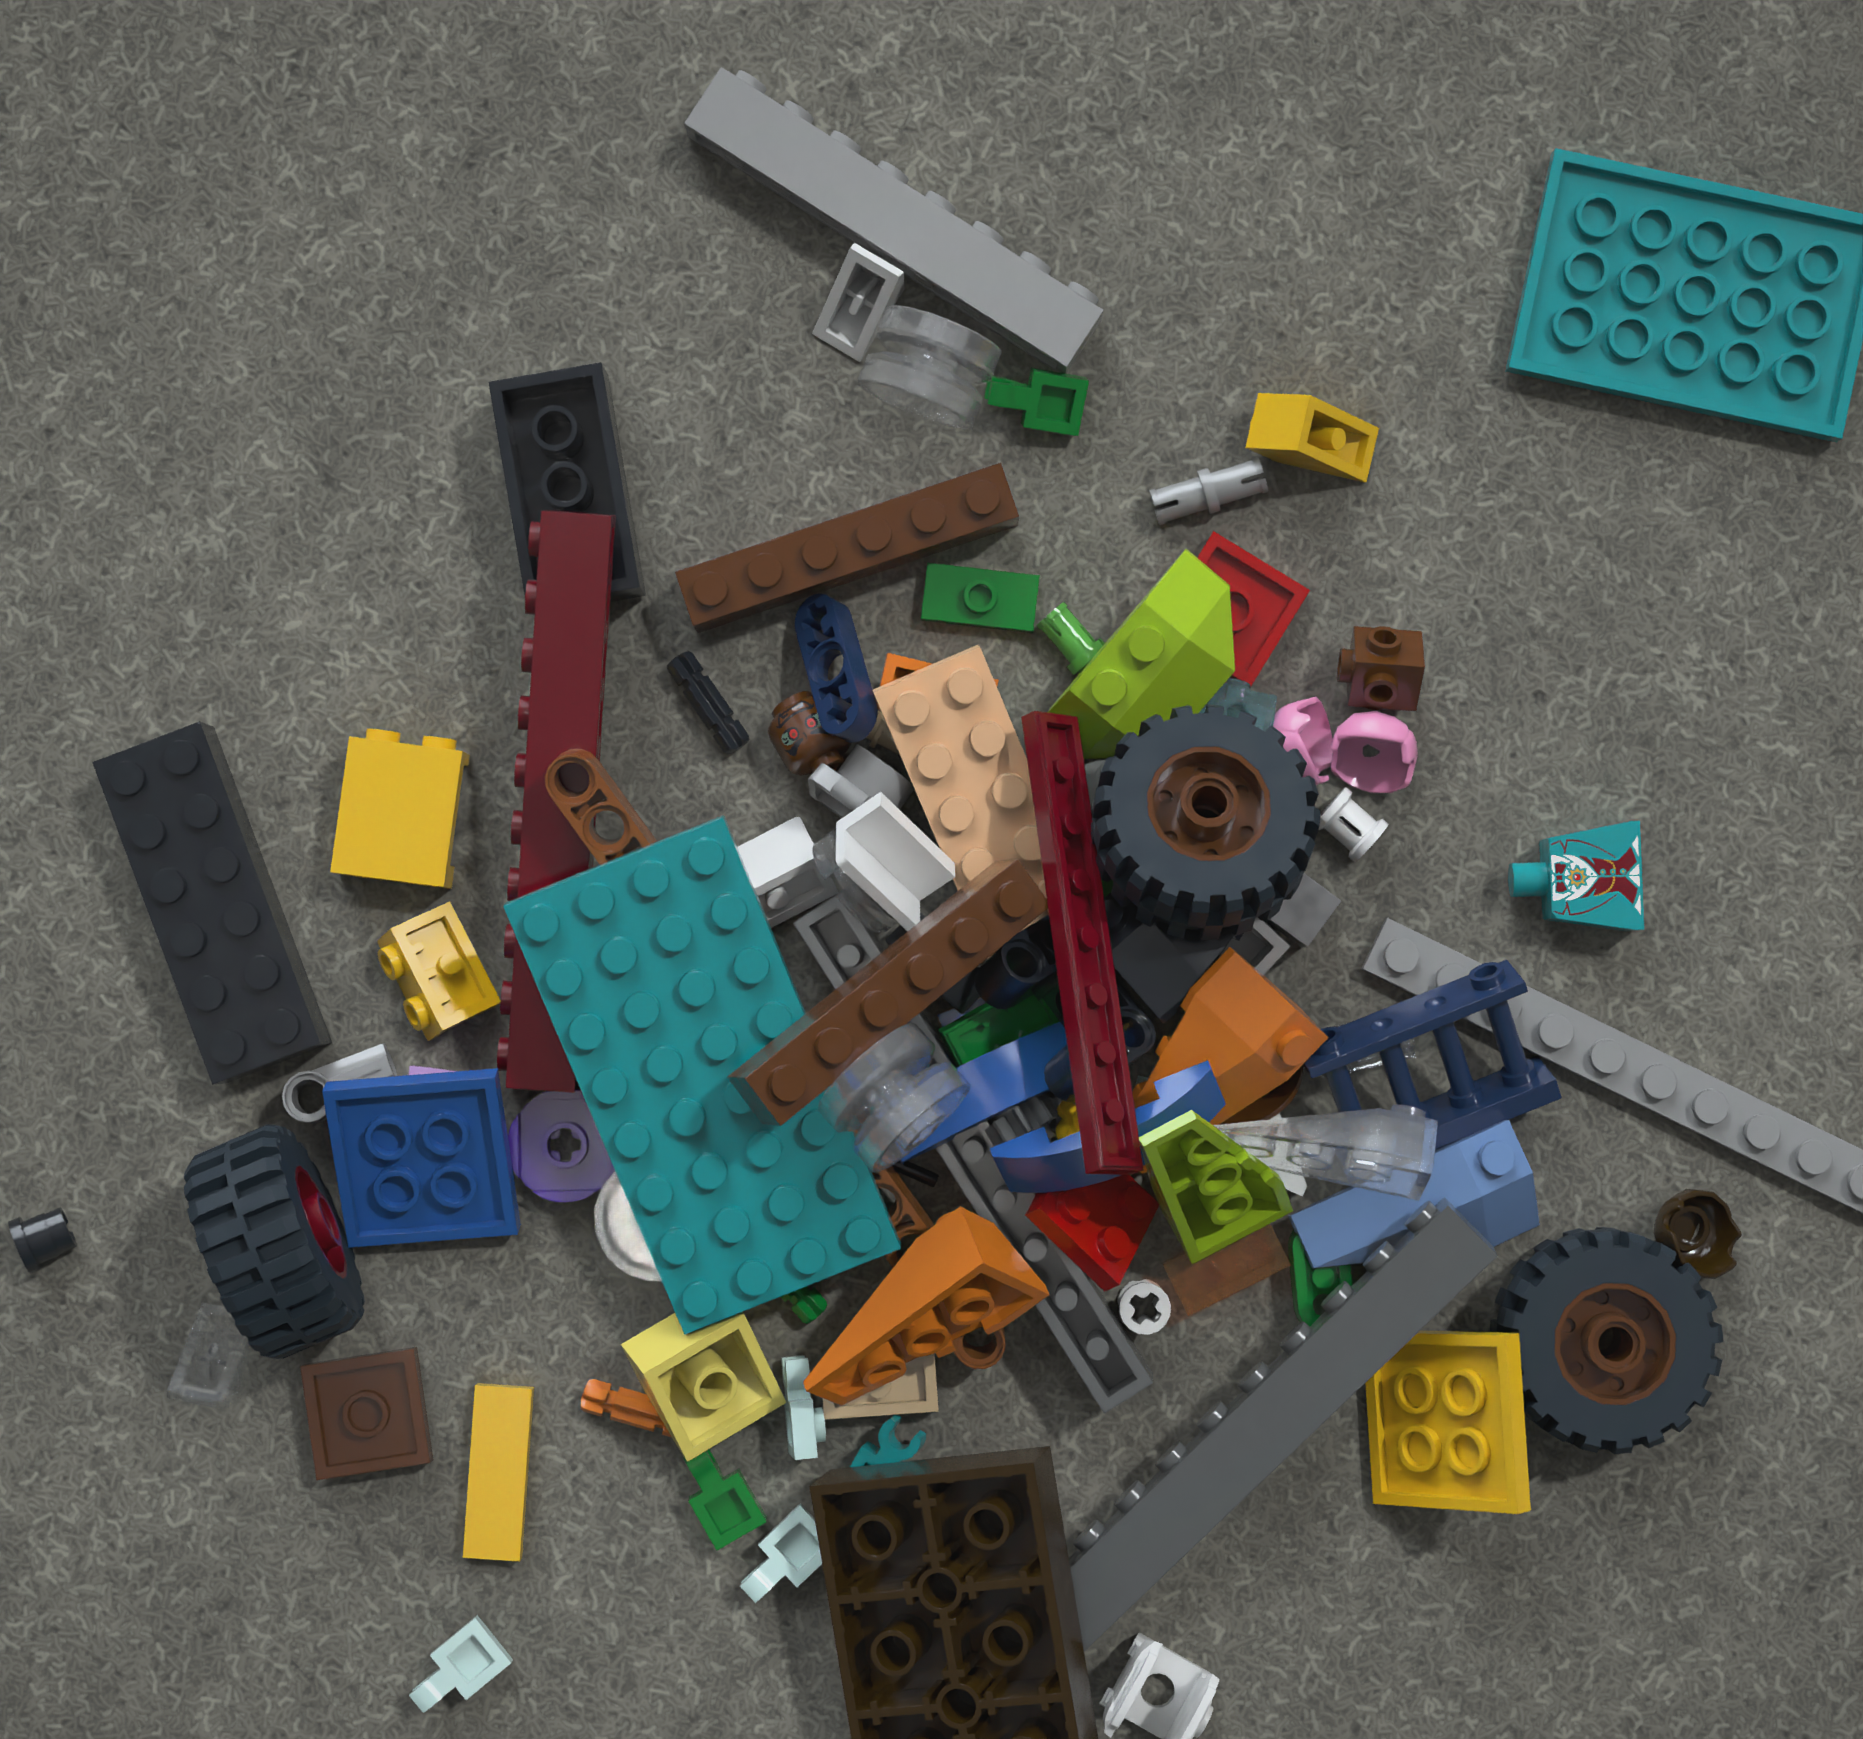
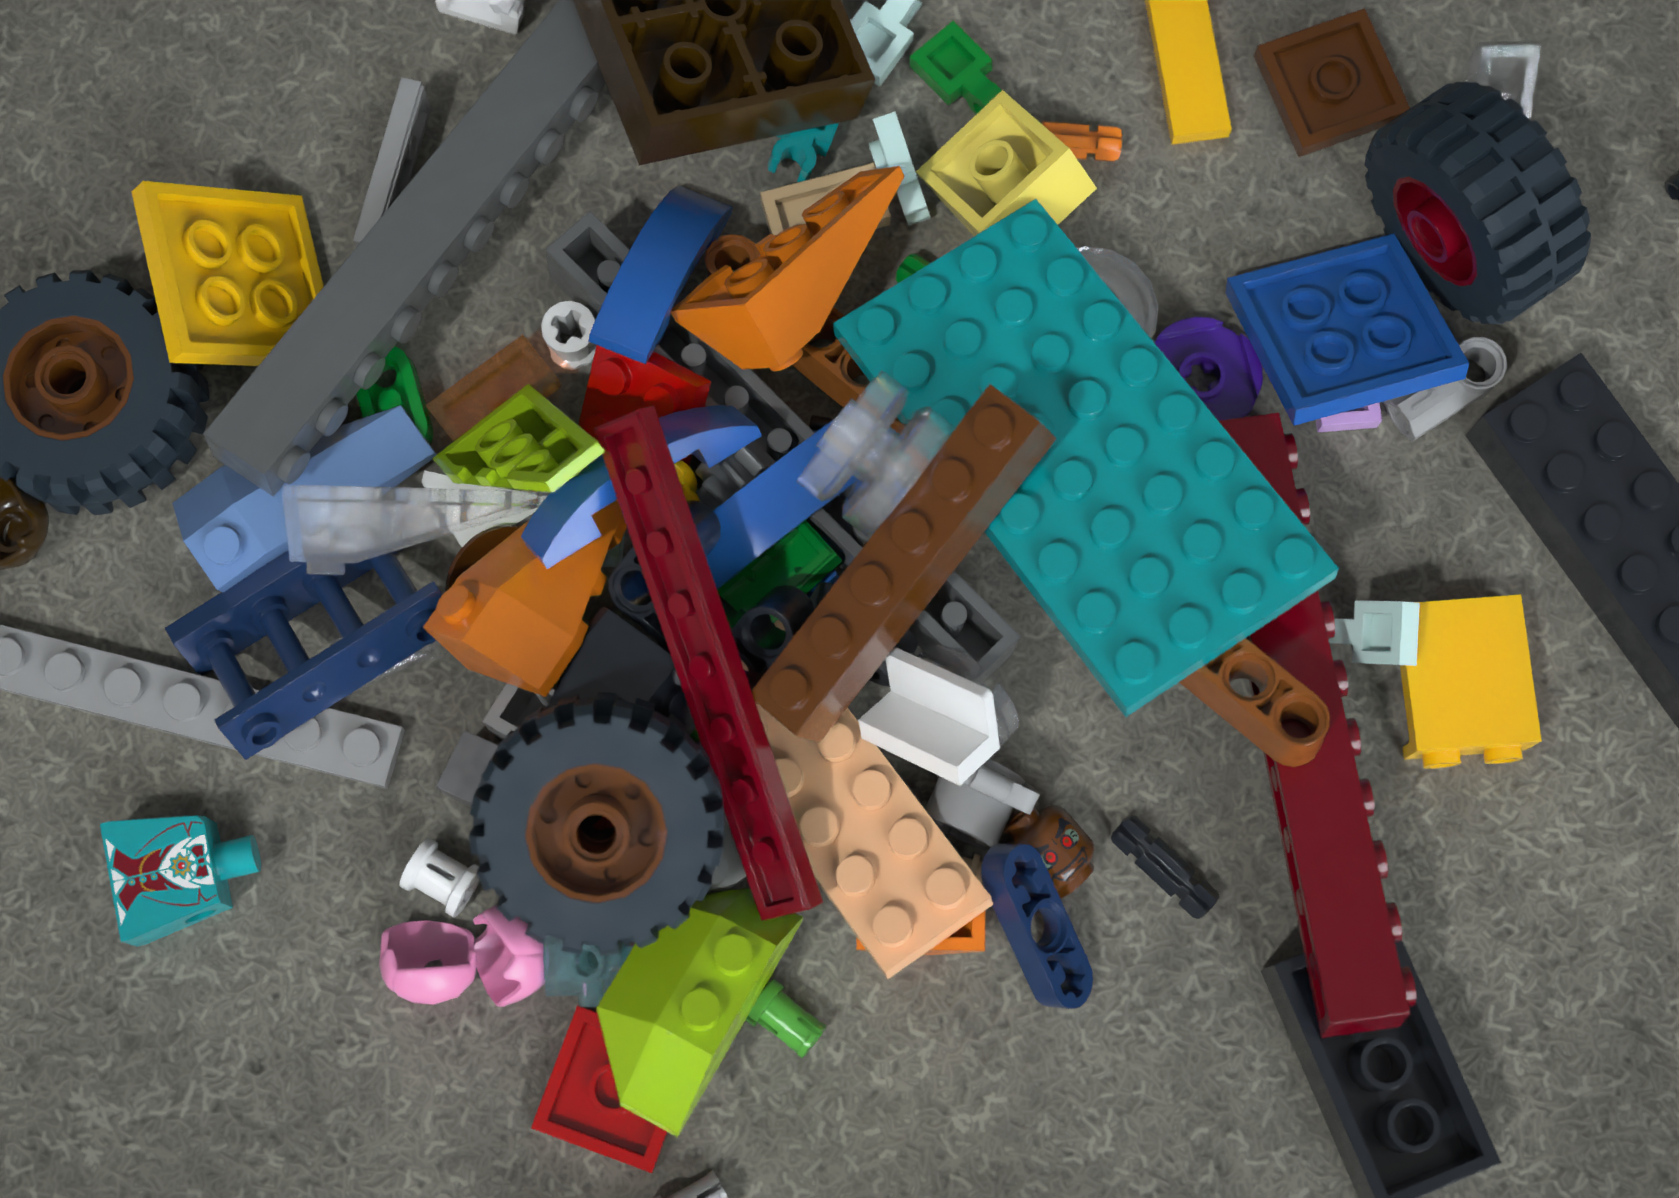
camera: 160 degrees right, 10 degrees down
(436, 971) = (1378, 523): yellow bracket -> none
(467, 862) = (1381, 632): none -> light aqua plate
(785, 871) = (1052, 697): white panel -> none
(848, 548) = (1054, 1065): reddish brown brick -> none
(980, 597) = (895, 1045): green plate -> none
(1049, 1343) = (656, 272): none -> blue slope
(1280, 1511) = (396, 154): none -> light grey tile
(1383, 668) = (433, 1055): reddish brown brick -> none

